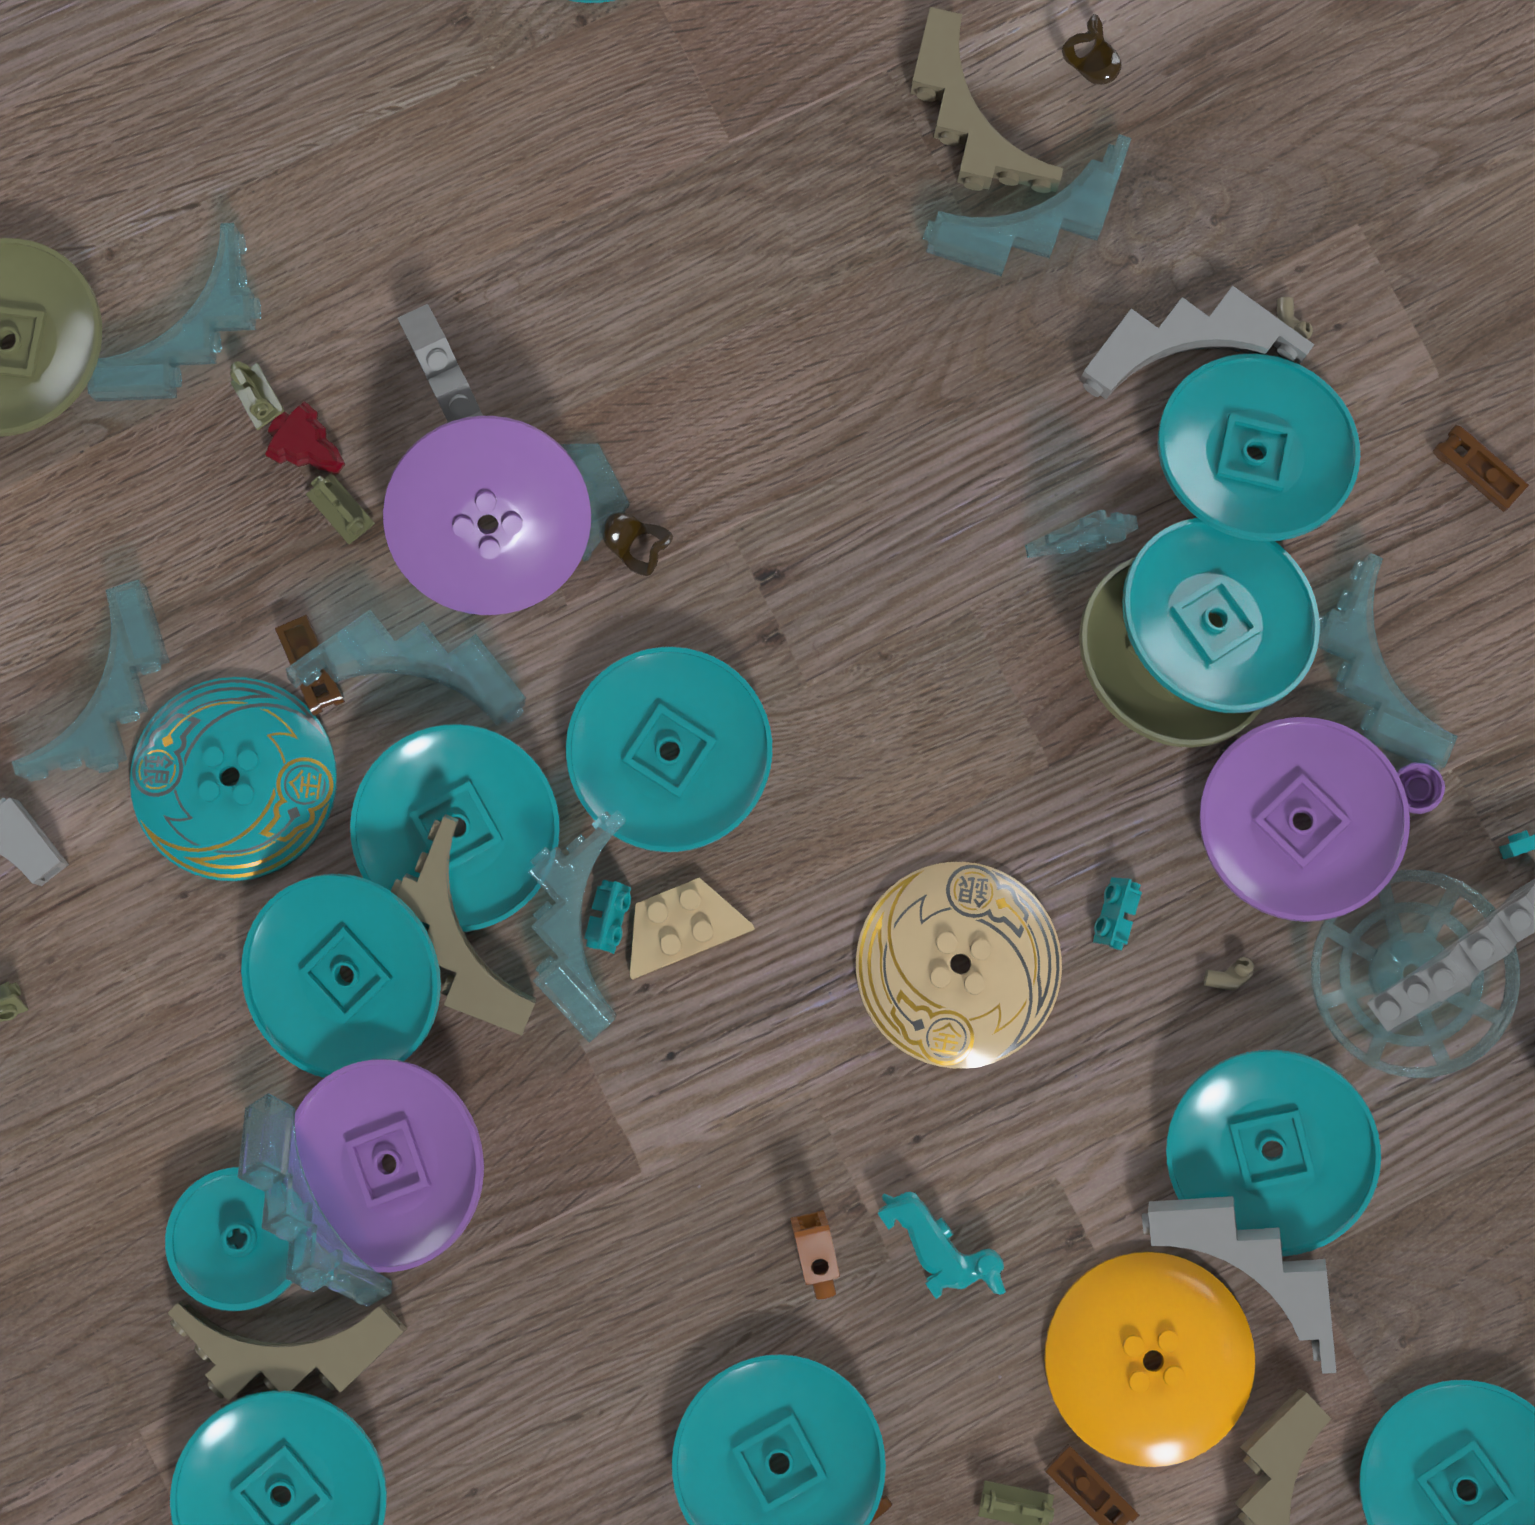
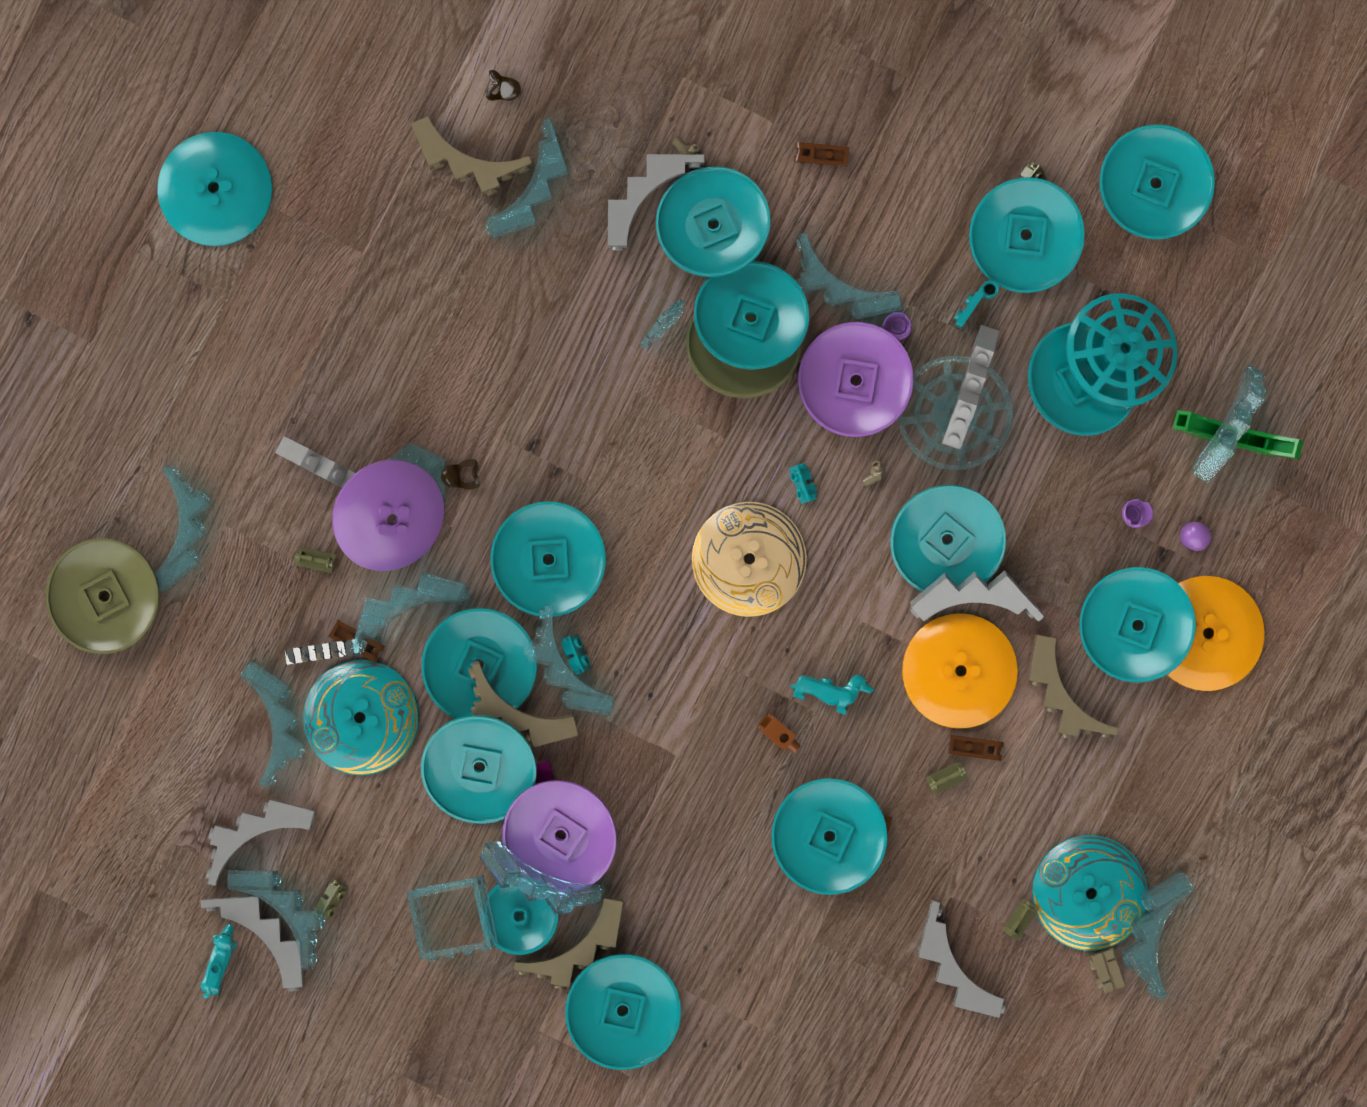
camera: 30 degrees left, 5 degrees up
(188, 1193) = (483, 909): none -> clear light blue window
(242, 639) = (318, 652): none -> sticker
(255, 393) = (237, 536): olive hinge -> none
(303, 441) = (274, 541): dark red rock -> none
(433, 1051) = (544, 771): none -> magenta slope
(681, 925) = (611, 633): tan wing -> none

